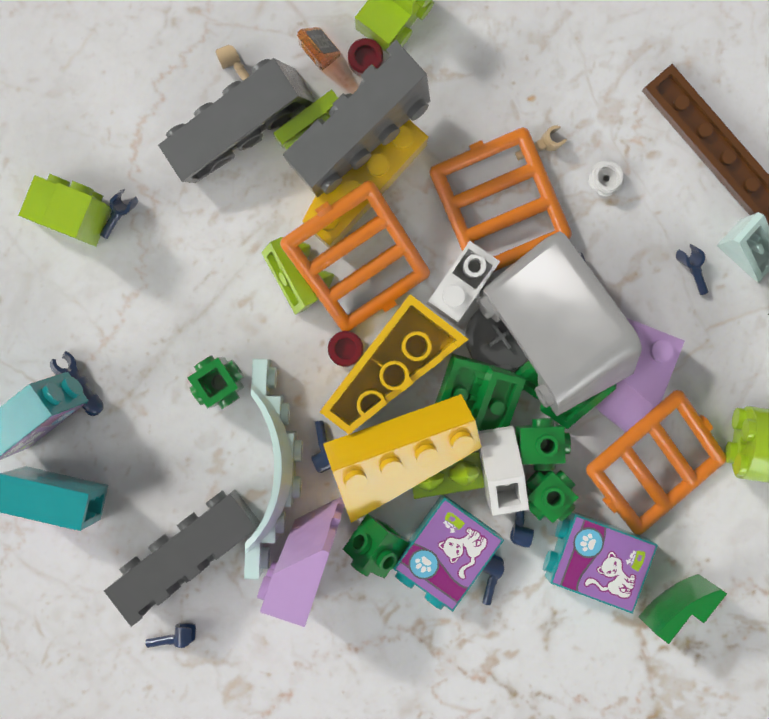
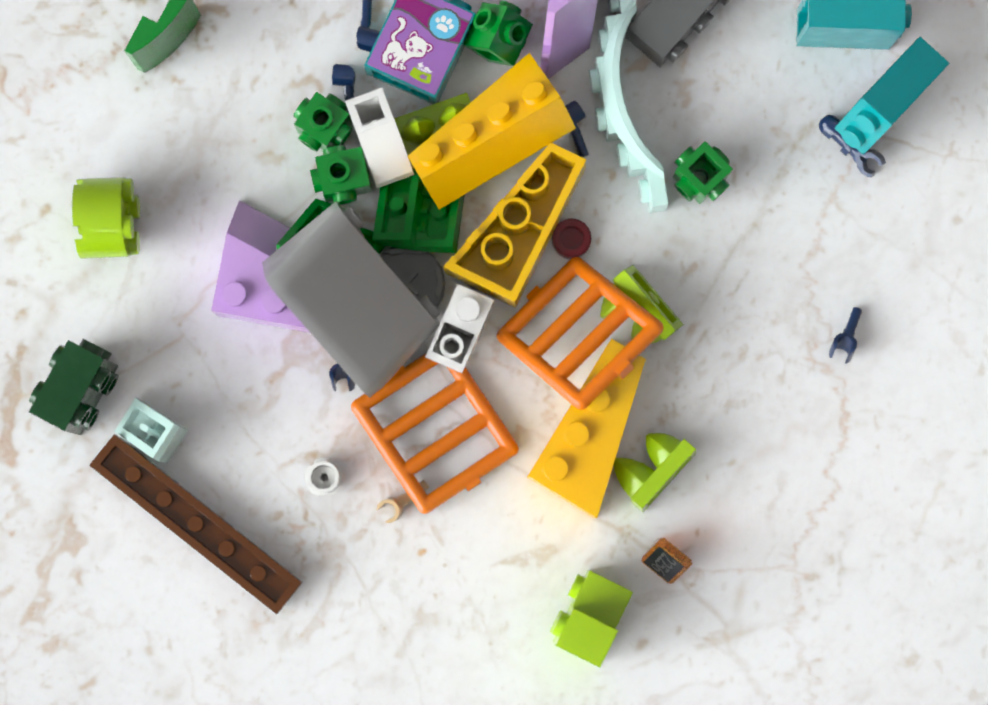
camera: 165 degrees right, 5 degrees down
(66, 209) = (902, 324): lime brick -> none
(229, 57) = (761, 530): tan hand -> none
(235, 120) = (738, 457): dark grey wedge -> none
(360, 122) = (605, 464): dark grey wedge -> none
(363, 54) = (613, 559): dark red tile -> none
(599, 561) = (256, 64): brick -> none
(623, 448) = (231, 214): orange bar -> none
(694, 262) = (211, 401): dark blue hand -> none

